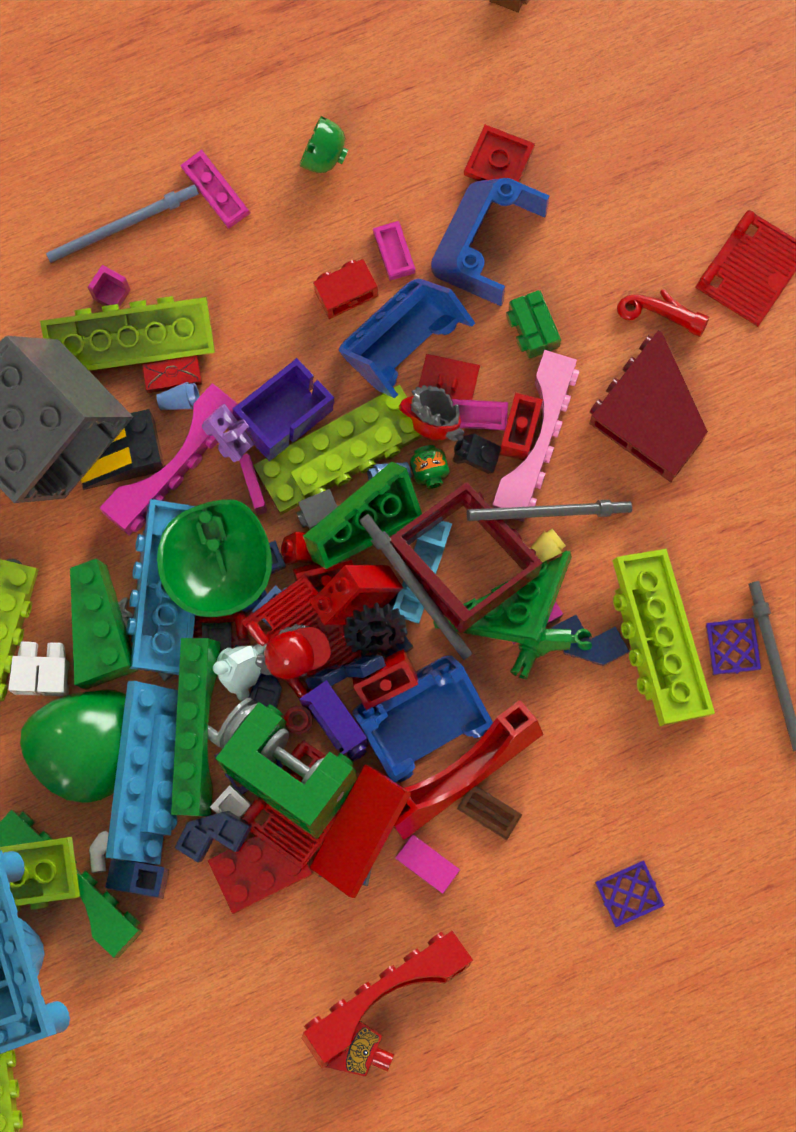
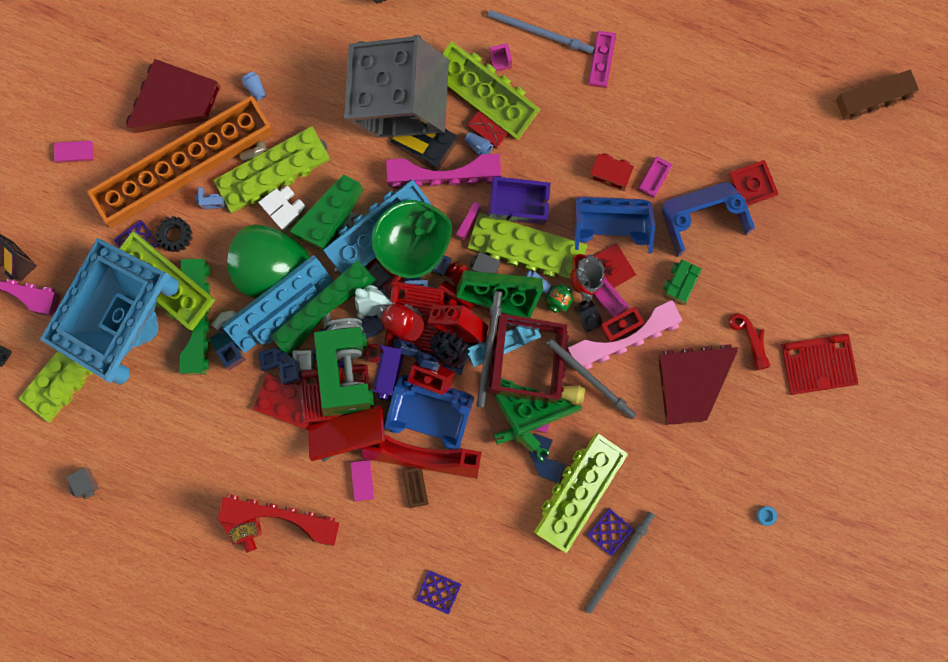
camera: 45 degrees right, 5 degrees up
(231, 443) = (476, 192): medium lavender hips -> none
(324, 147) = (674, 92): green cylinder -> none

